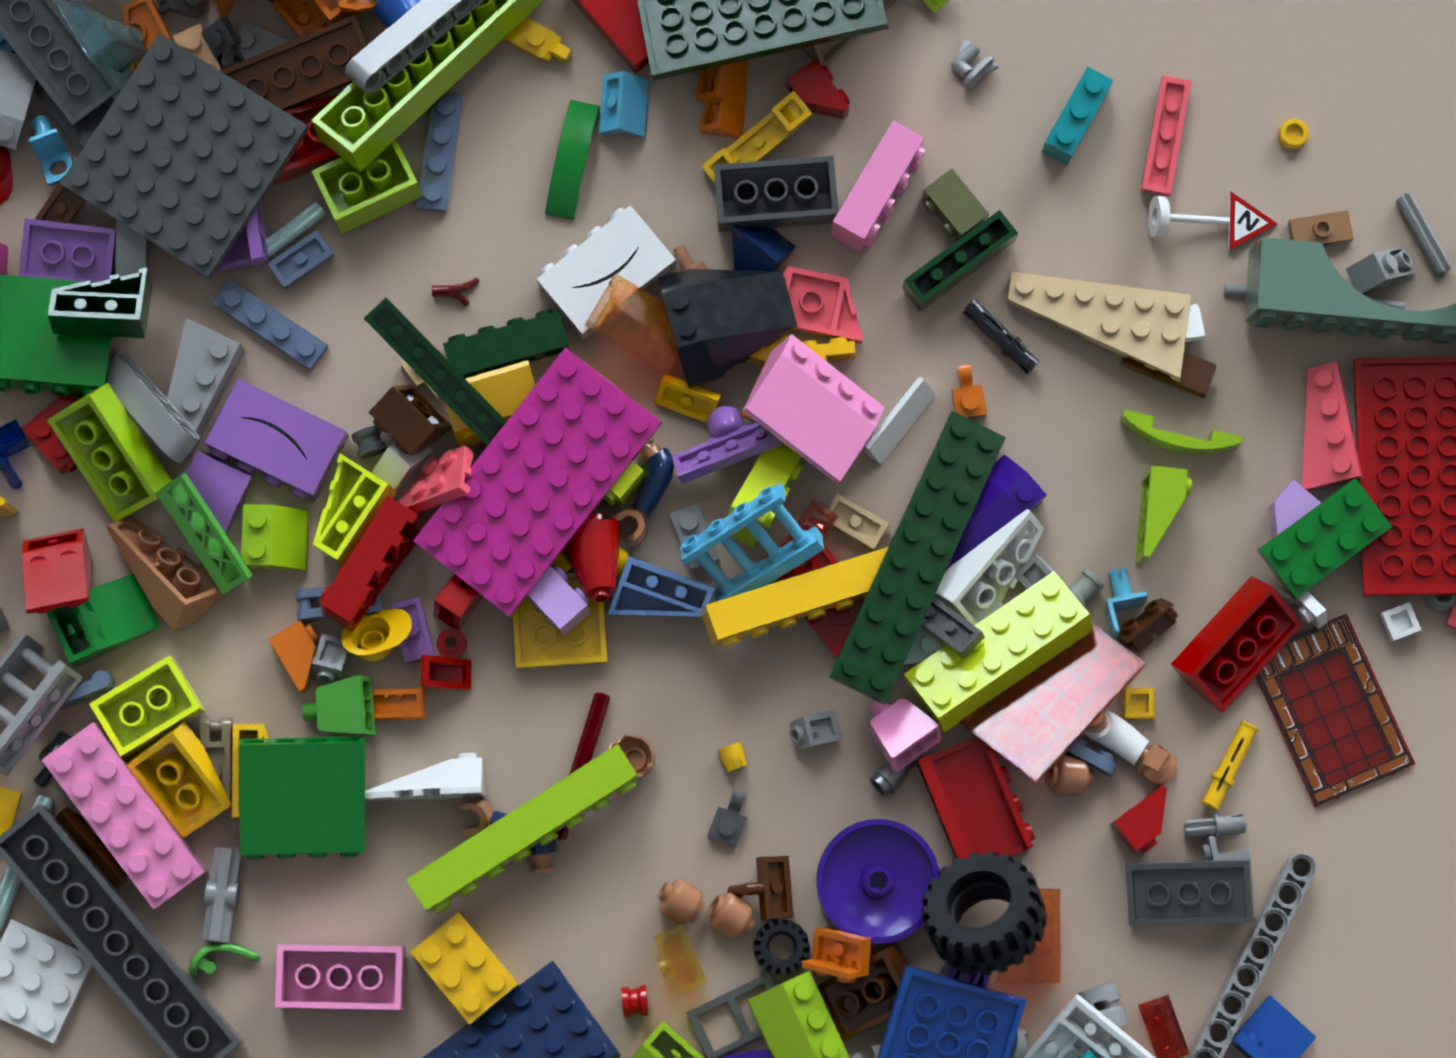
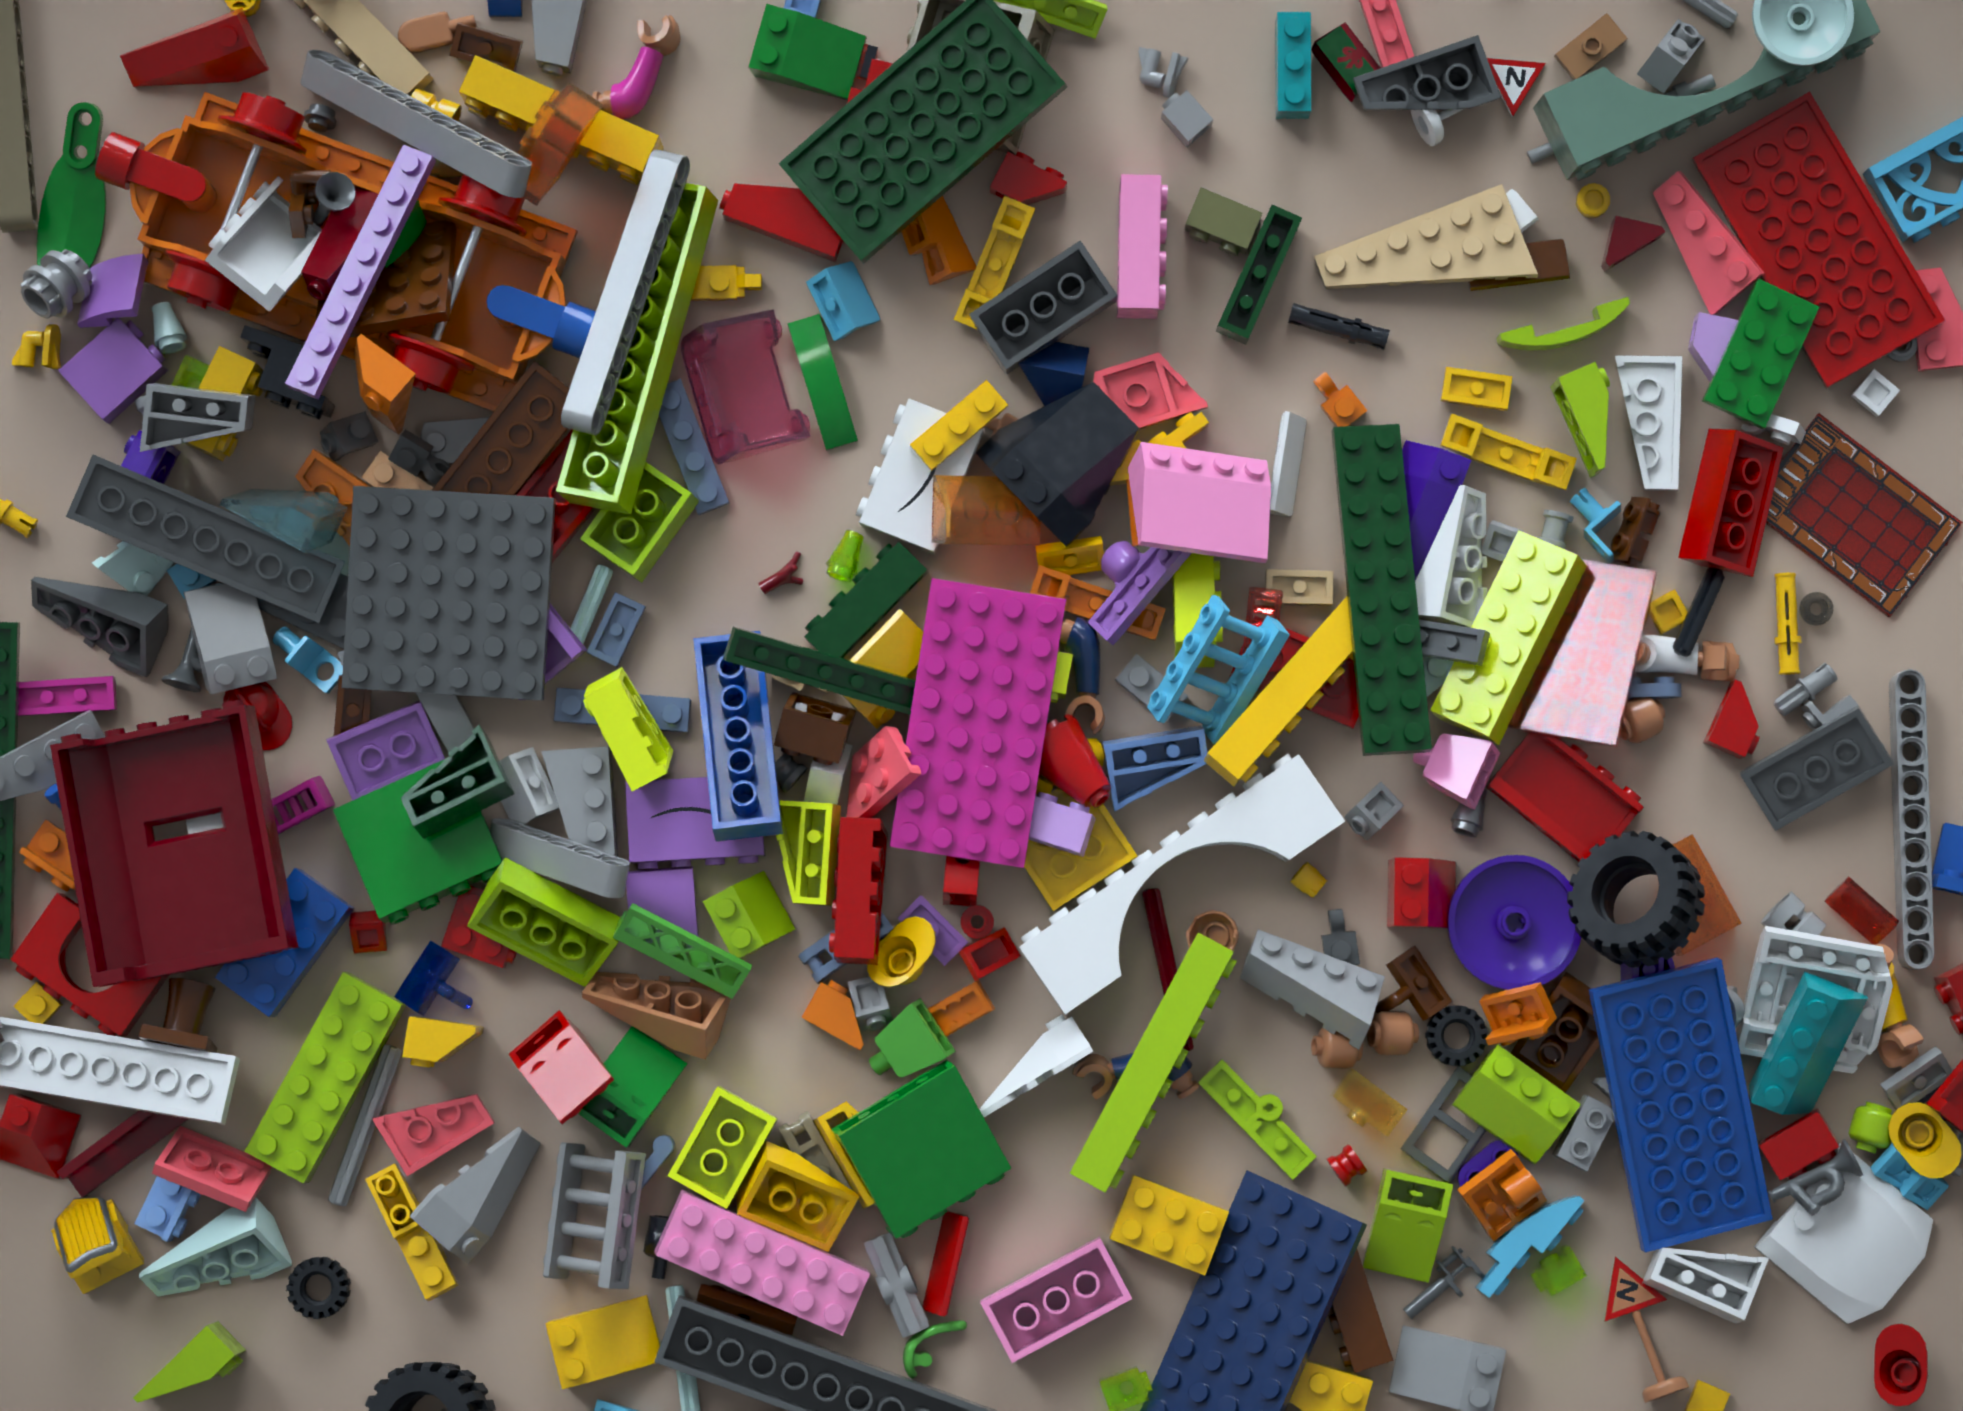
camera: 20 degrees left, 5 degrees up
(161, 341) = (531, 787): none -> white panel
(263, 338) = (628, 728): none -> neon yellow wedge
(271, 900) = (945, 1263): none -> red slope
(339, 397) = (737, 744): none -> blue brick
(506, 126) = (741, 387): none -> clear pink windscreen
(510, 303) = (845, 558): none -> clear neon green cone
(520, 706) = (1273, 815): none -> white arch
(585, 924) = (1258, 1118): none -> lime hinge
(657, 246) = (959, 425): none -> yellow plate
(679, 436) = (1085, 599): none -> orange slope
(689, 840) = (1314, 984): none -> light grey wedge
(816, 814) = (1419, 892): none -> red slope
(970, 111) = (1186, 117): none -> light grey brick
(1079, 508) = (1507, 453): none -> yellow slope
(1082, 444) = (1476, 388): none -> yellow plate
(1121, 136) = (1343, 58): none -> piece
(1162, 716) = (1698, 612): none -> black axle
(1185, 185) = (1436, 80): none -> dark grey wedge
(1216, 536) = (1654, 411): none -> white wing
(1256, 349) = (1592, 200): none -> yellow tile
(1266, 760) = (1826, 608): none -> clear smoke plate
(1269, 393) = (1627, 238): none -> dark red slope

